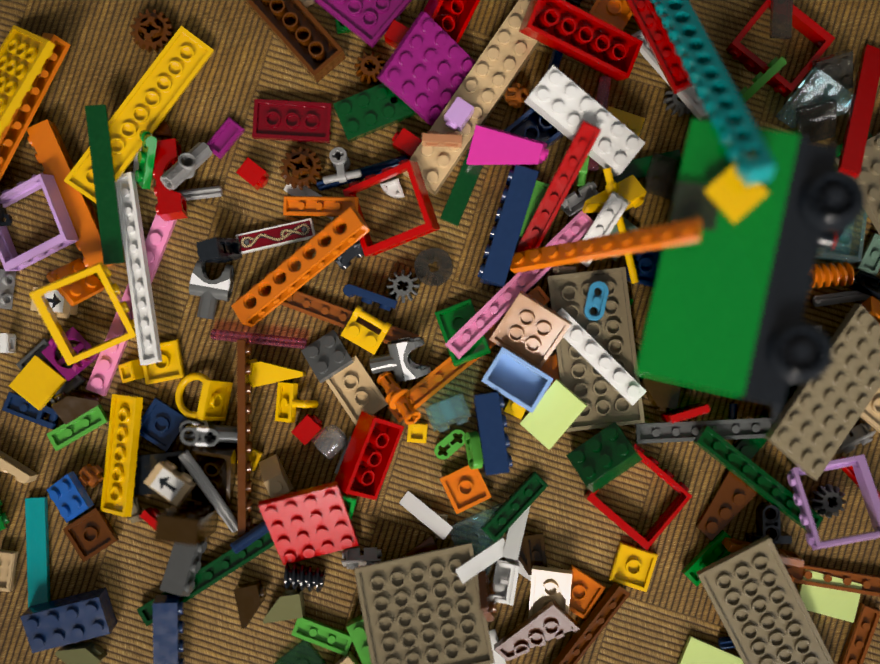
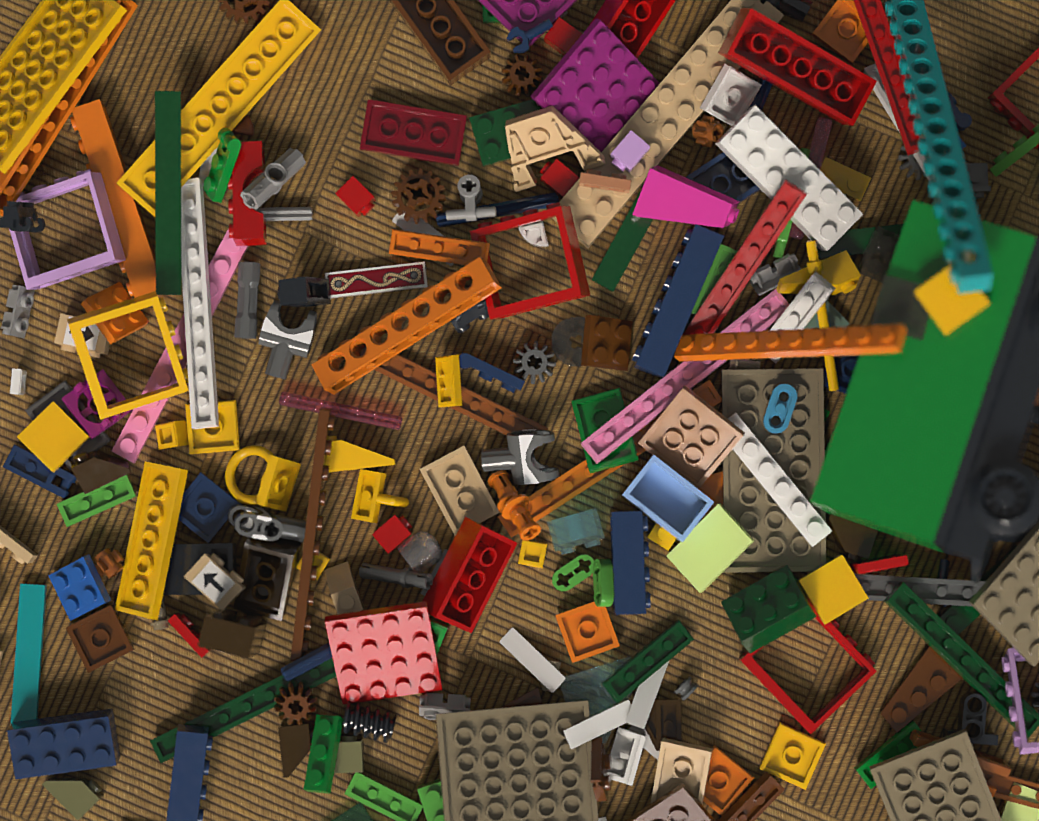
camera: 10 degrees right, 0 degrees up
(177, 245) = (247, 300): none -> dark grey axle
(182, 568) = (217, 689): dark grey brick -> none
(209, 490) = (260, 599): light grey axle -> none
(225, 137) = (323, 144): magenta tile -> none
(244, 562) = (295, 712): none -> reddish brown gear
(270, 607) = (323, 754): none -> green plate
(320, 462) = (403, 577): none -> dark grey pin
(327, 356) = (427, 442): dark grey plate -> none
(338, 307) = (448, 381): none -> yellow plate
(363, 336) = (476, 421): yellow plate -> none
(371, 35) = (527, 35): none -> dark blue bar
(389, 109) = (544, 136): none -> tan wing
(456, 265) = (606, 343): none -> reddish brown plate
(531, 64) = (730, 95): none -> white tile
(546, 523) = (686, 688): none -> dark grey bush
(652, 436) = (833, 589): none -> yellow tile

